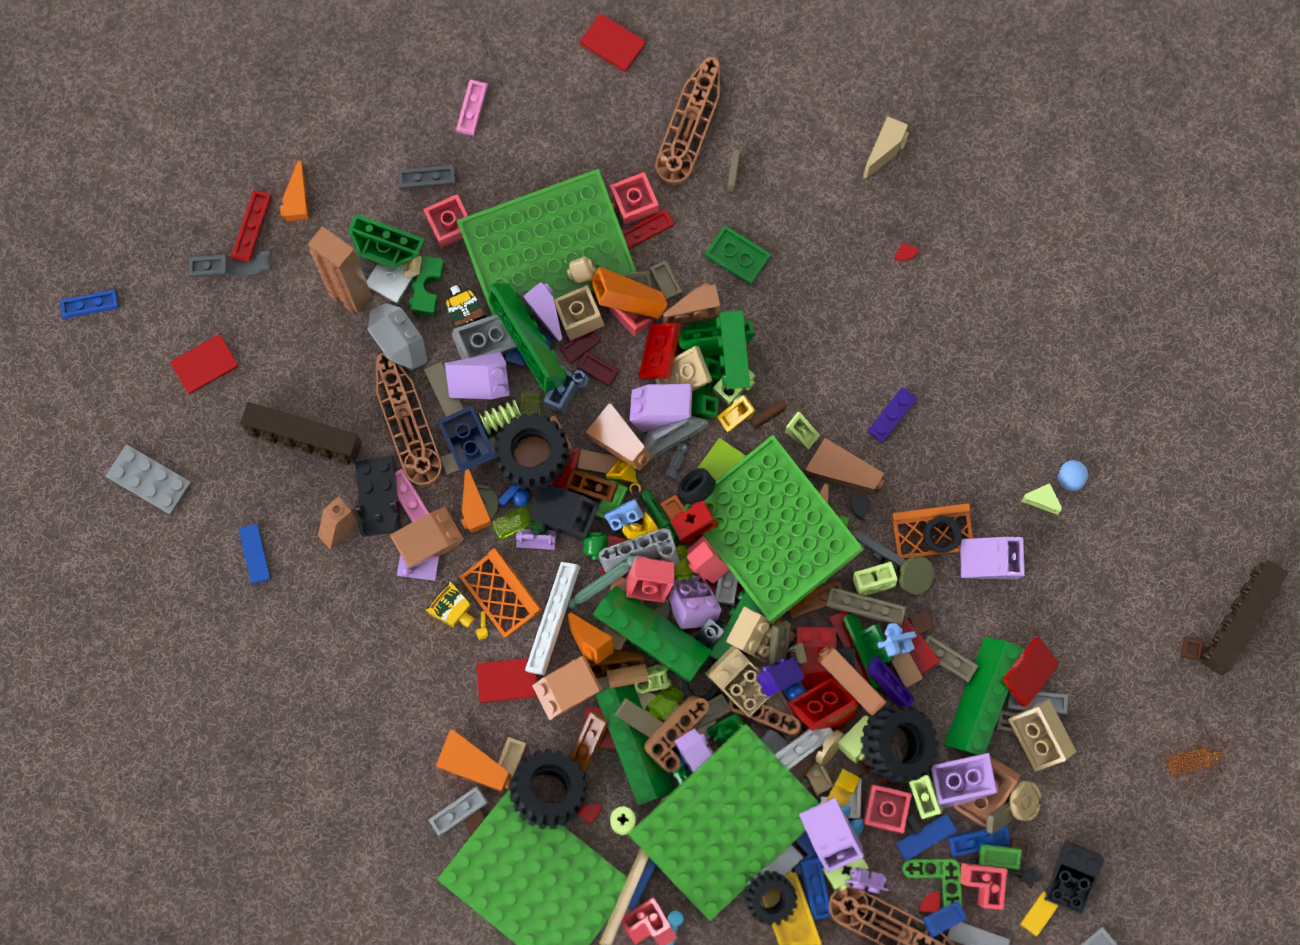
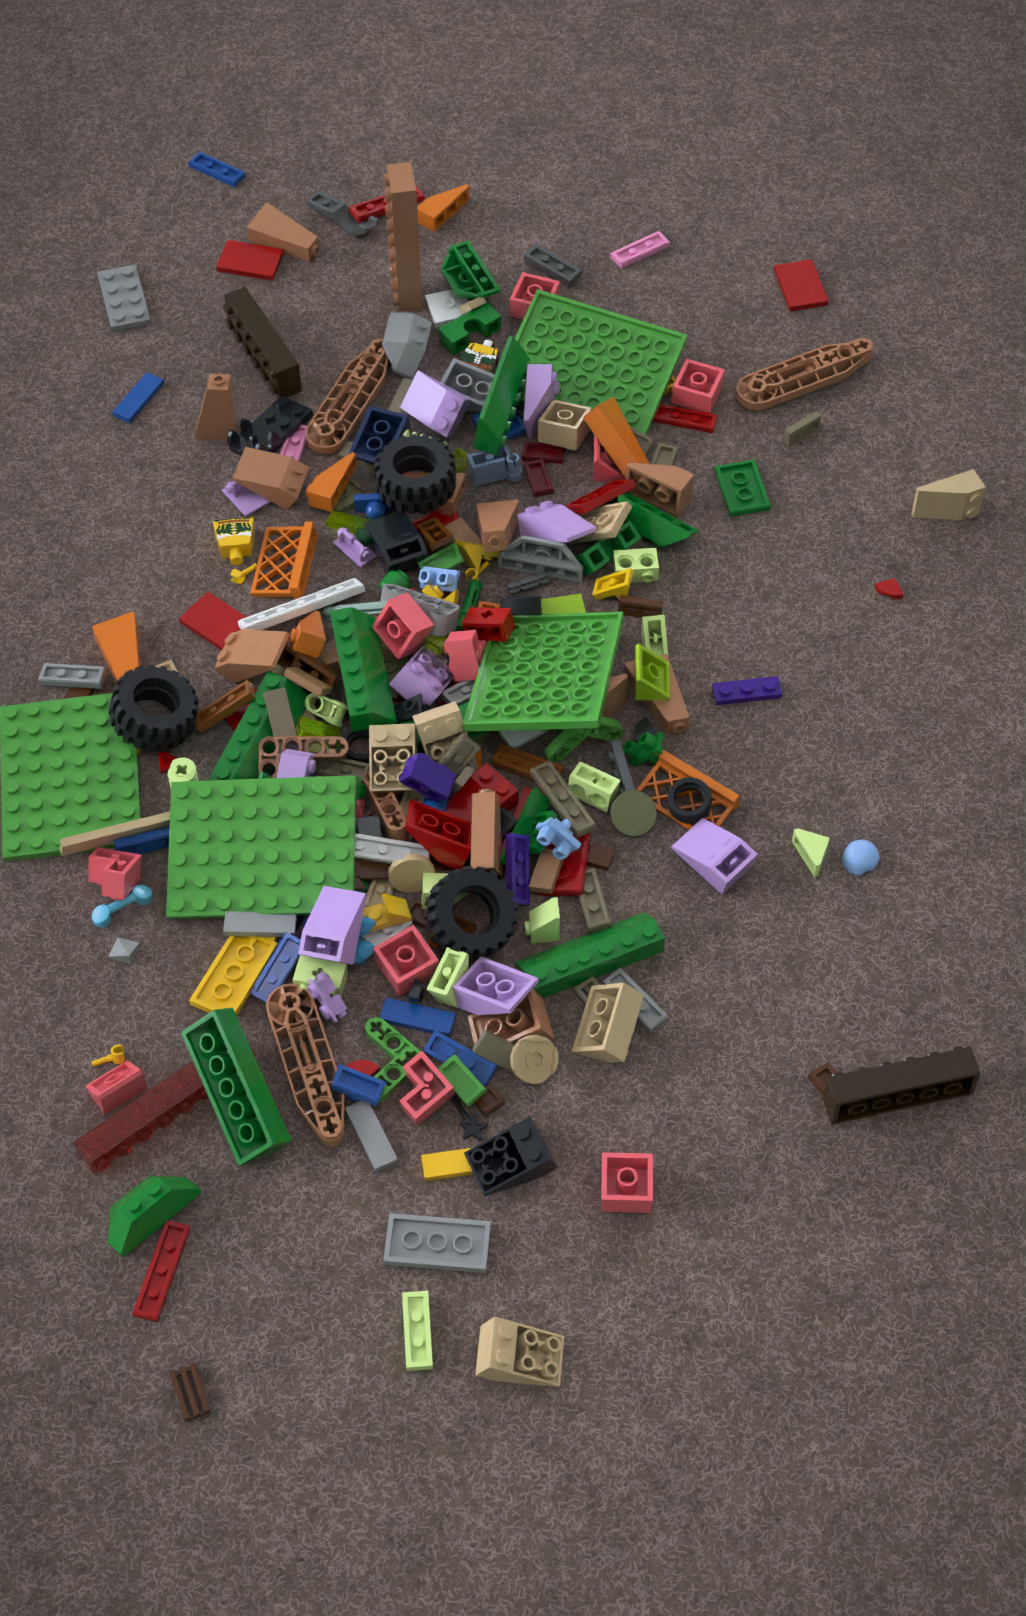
camera: 45 degrees right, 20 degrees down
(205, 322) = (277, 230): none -> nougat slope
(581, 270) = (597, 393): tan head -> none
(734, 350) = (657, 528): green brick -> none
(781, 909) = (217, 918): black tyre -> none
(836, 467) = (651, 675): none -> lime slope
(878, 521) = (645, 750): none -> green hips
(940, 704) = (544, 922): none -> yellowish green slope
(1030, 672) = (651, 962): red tile -> none
(1154, 828) = (627, 1182): none -> coral brick
(1191, 761) = (725, 1164): clear orange hinge -> none

